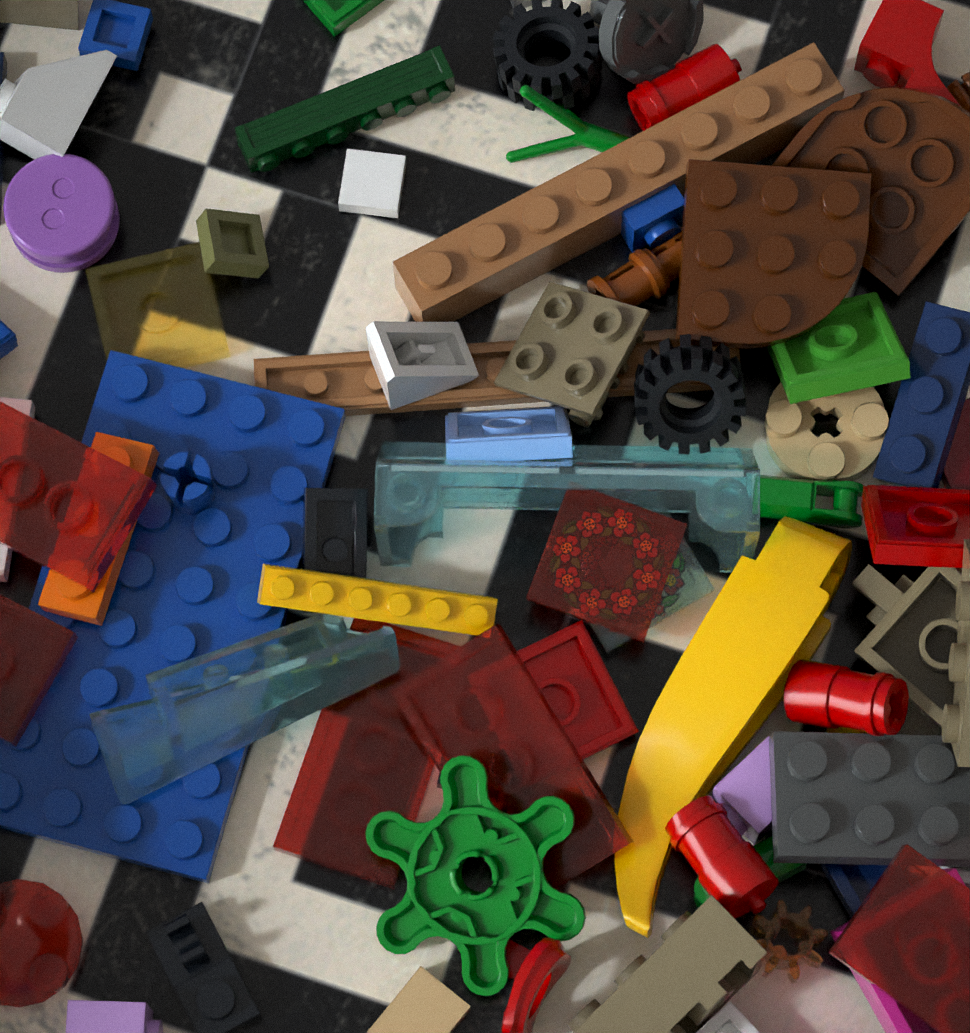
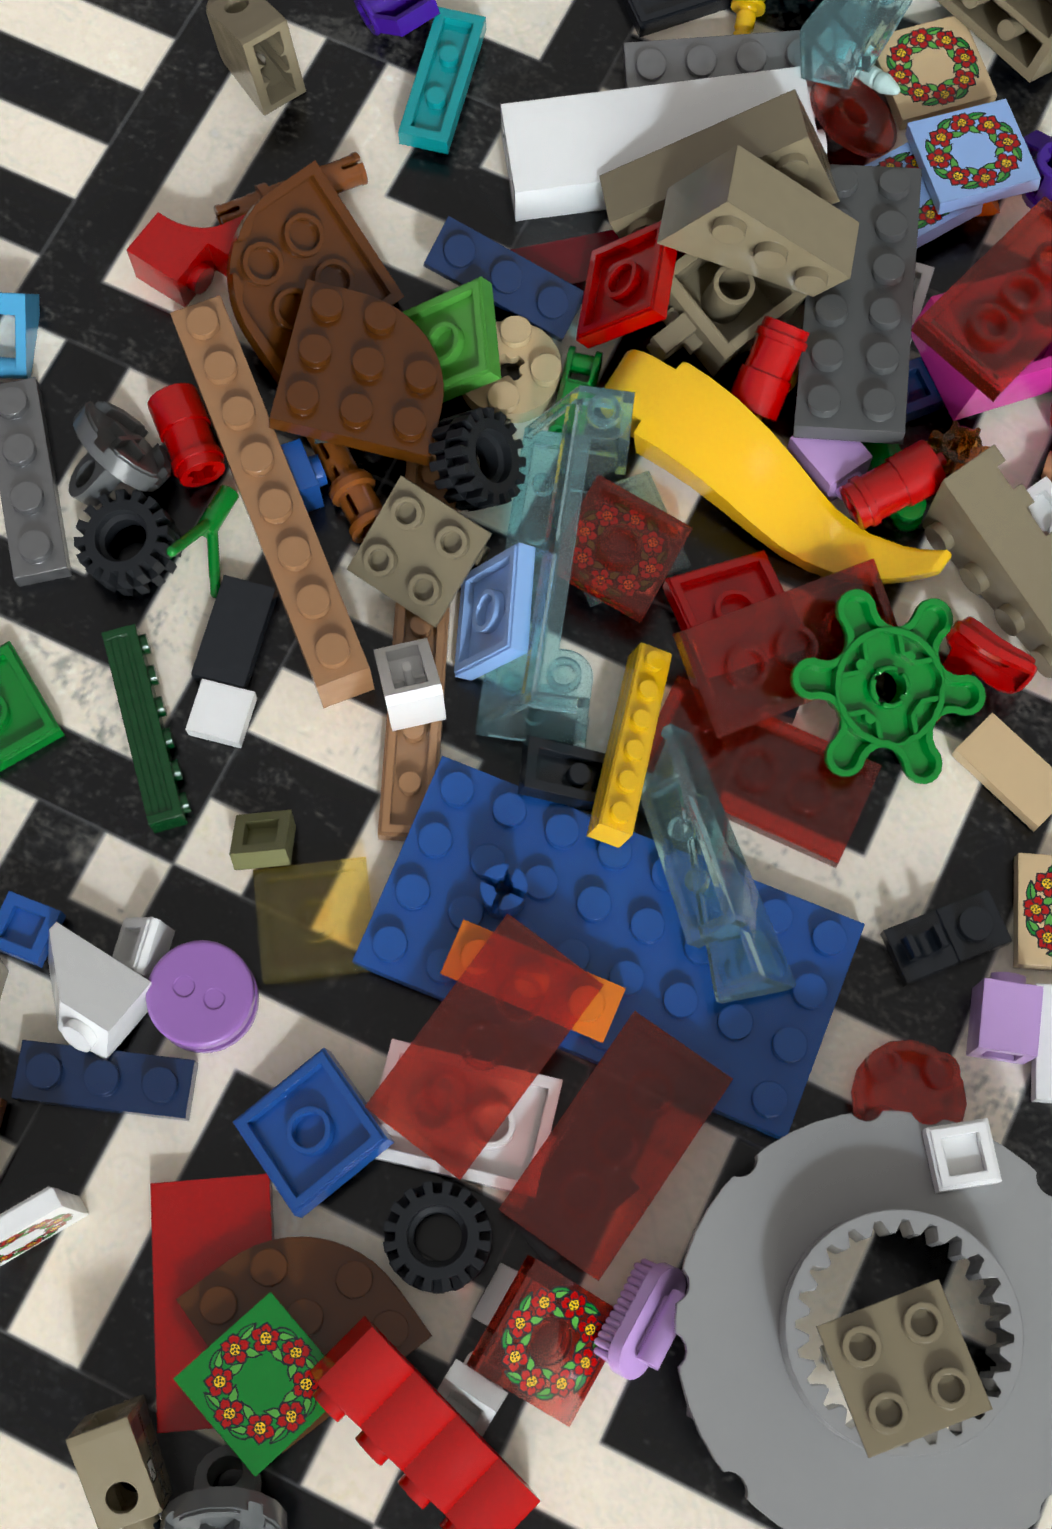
camera: 85 degrees left, 0 degrees up
(110, 148) = (143, 943): none -> white slope
(461, 180) = (235, 632): none -> black tile

